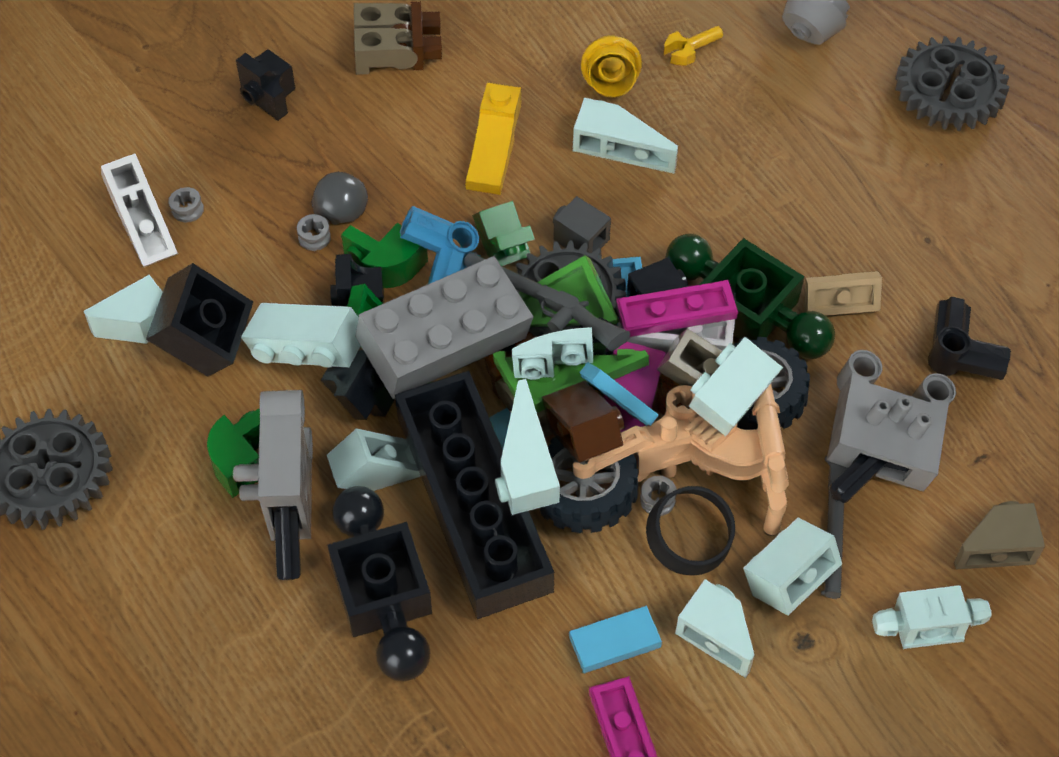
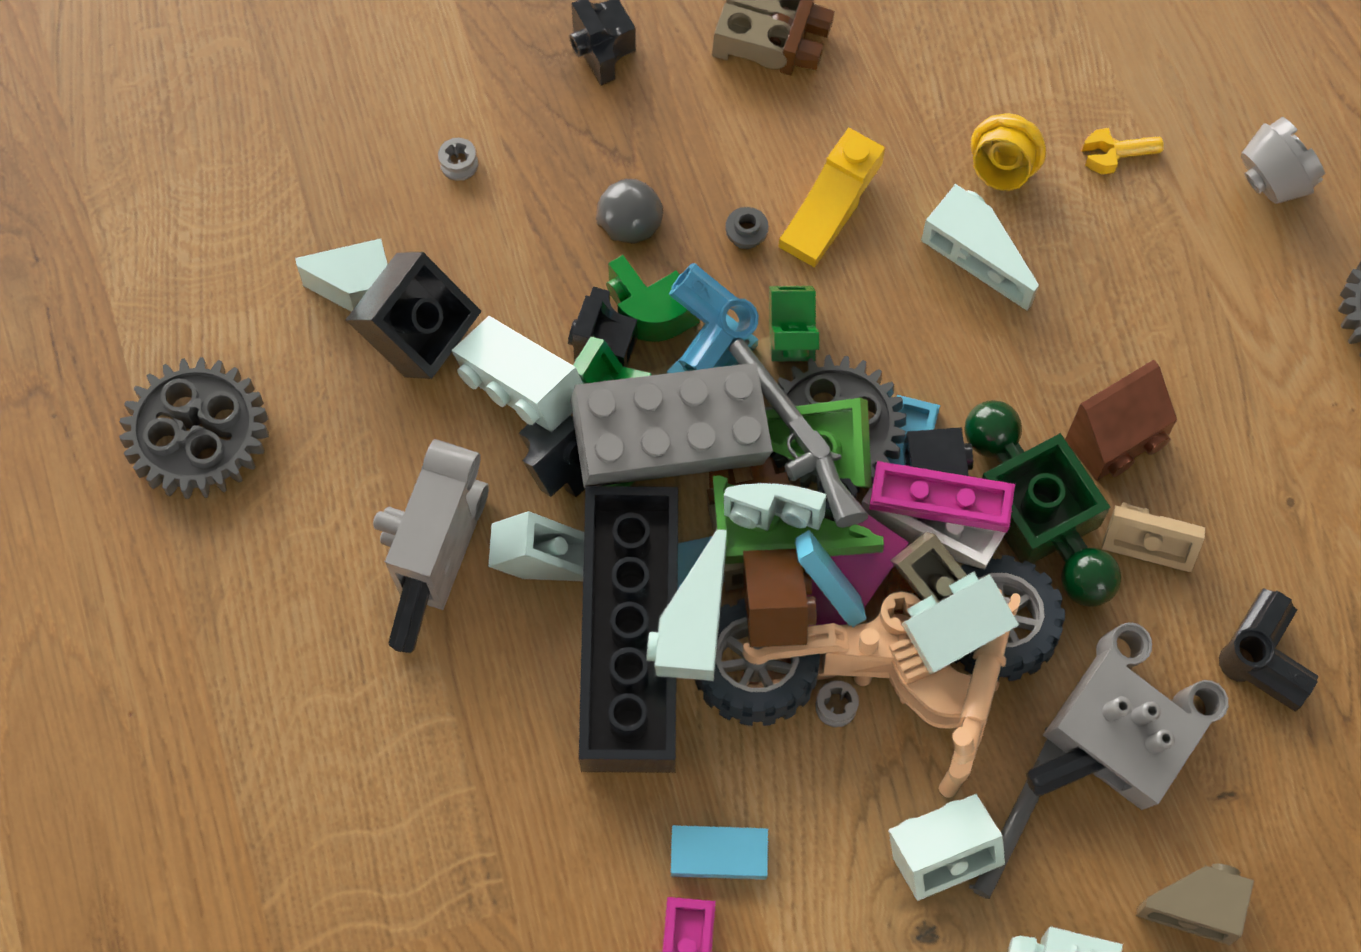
camera: 20 degrees right, 10 degrees up
(138, 210) = (401, 152): white slope -> none
(234, 445) = (393, 475): green brick -> none
(306, 238) = (596, 240): light grey bush -> none
(381, 582) = (490, 693): black brick -> none
(436, 182) = (743, 237): none -> dark grey plate
(582, 225) = (886, 345): dark grey brick -> none
(666, 555) = (808, 764): black tyre -> none
(717, 626) = (834, 881): light aqua slope -> none
(785, 216) = (1123, 422): none -> copper slope

